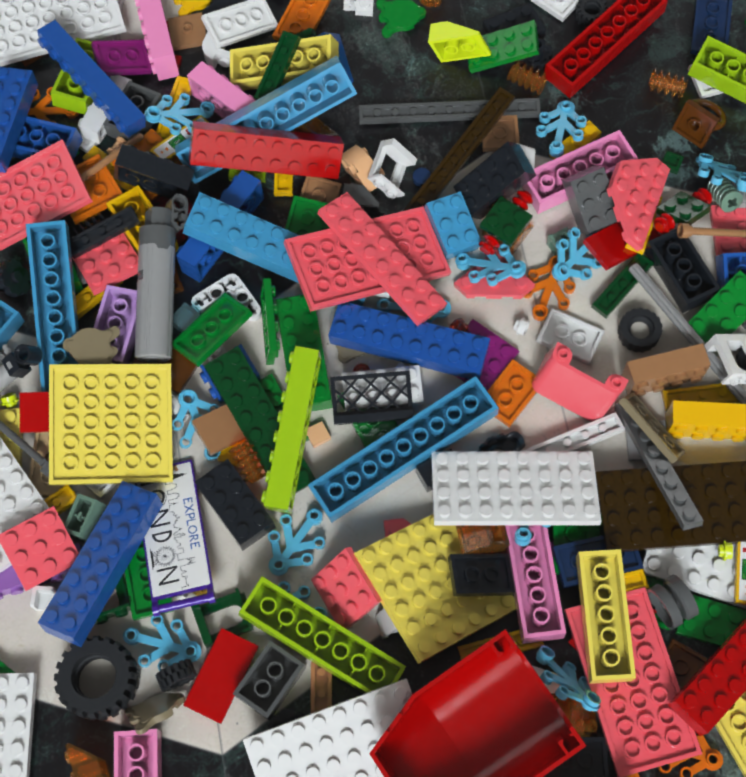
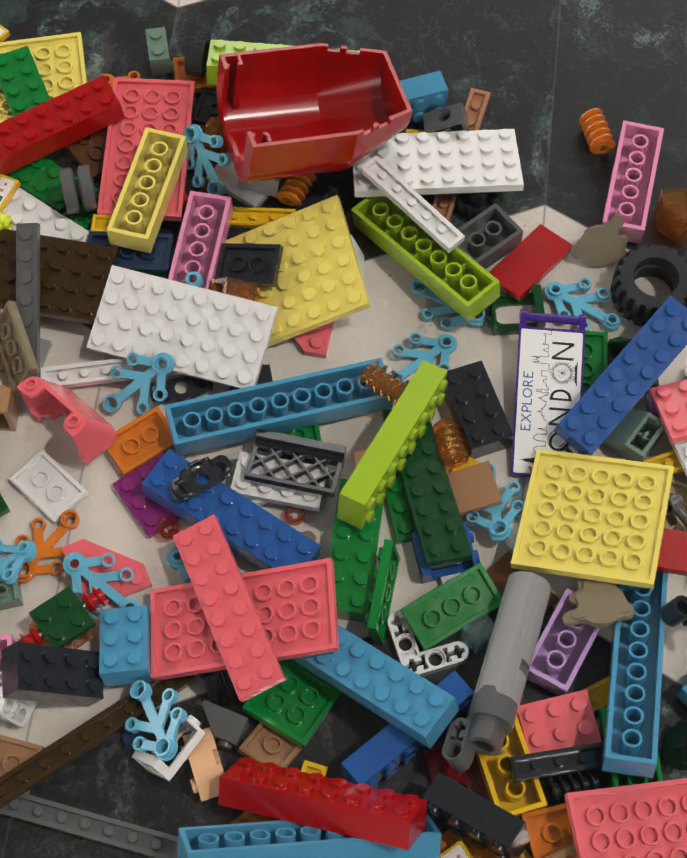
camera: 165 degrees left, 5 degrees down
(176, 675) = (574, 266): black tyre -> none
(316, 486) = (383, 382): none -> clear orange piece
(345, 672) = (412, 204): none -> white plate
(346, 589) = (386, 290): coral plate -> none
(393, 157) = (166, 745): none -> medium azure plant
(450, 340) = (215, 469): none -> black piece
(519, 446) = (142, 380): none -> medium azure plant
(521, 326) = (97, 510): white plate -> none

